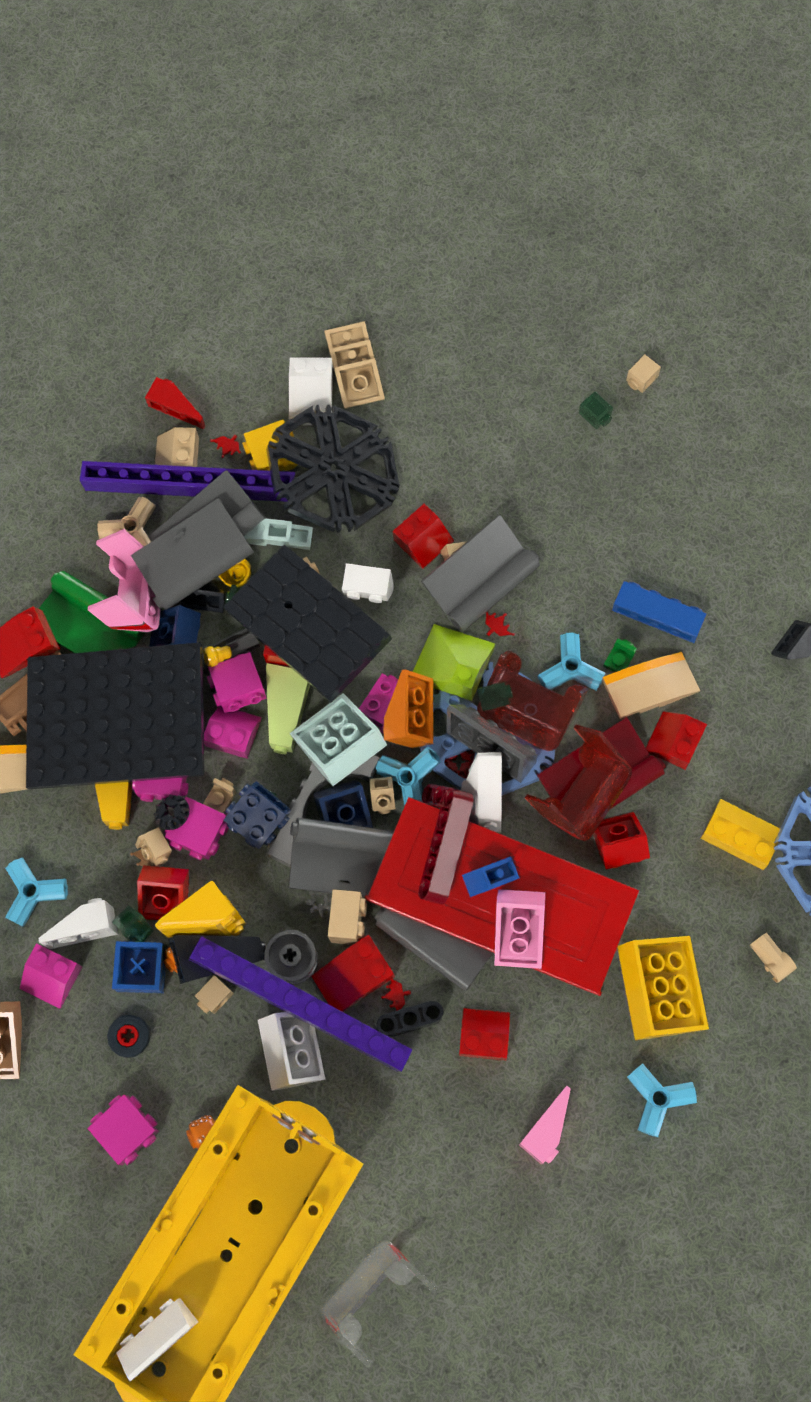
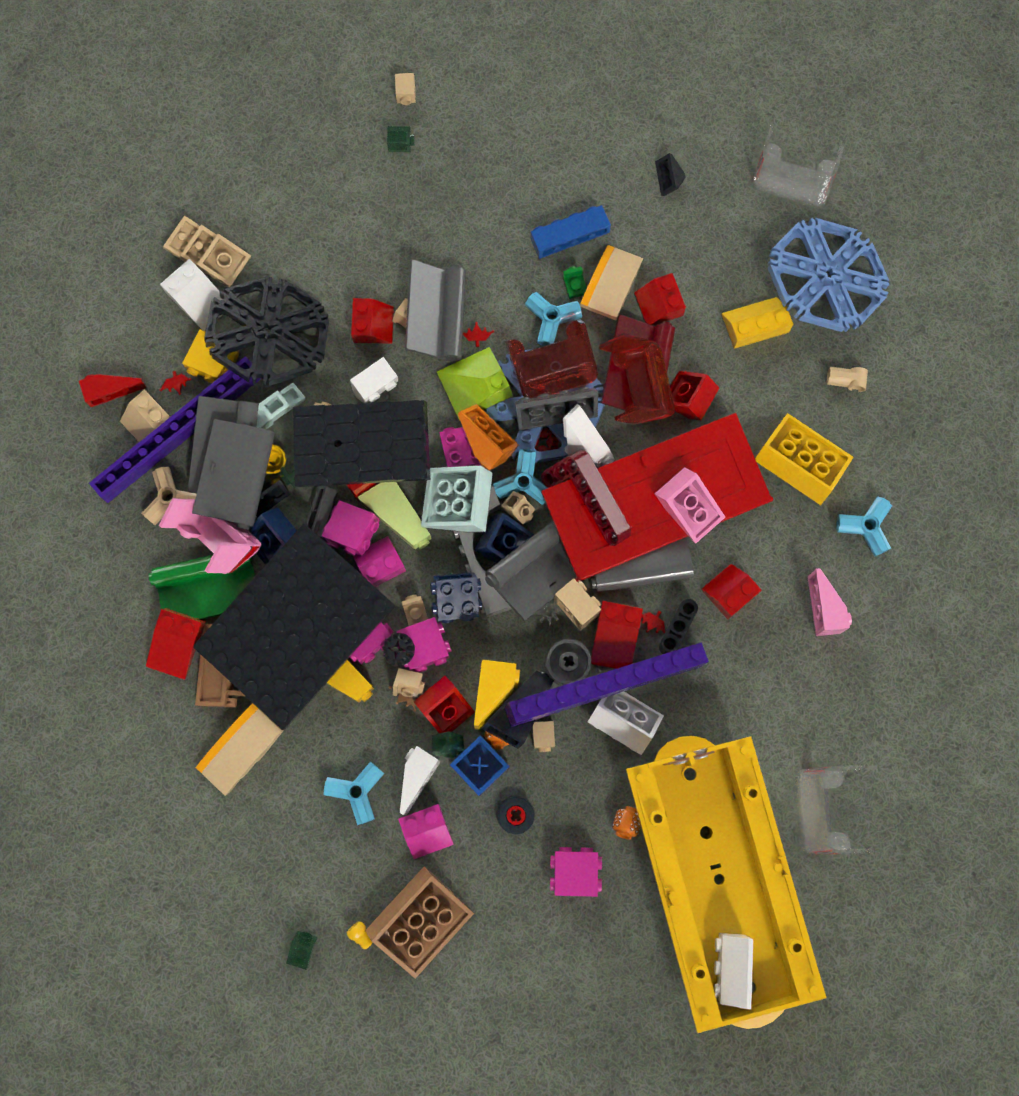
camera: 50 degrees left, 5 degrees up
(215, 655) = (319, 522): yellow piece -> none
(490, 876) = (642, 490): blue slope -> none
(495, 695) = (529, 376): clear green bracket -> none

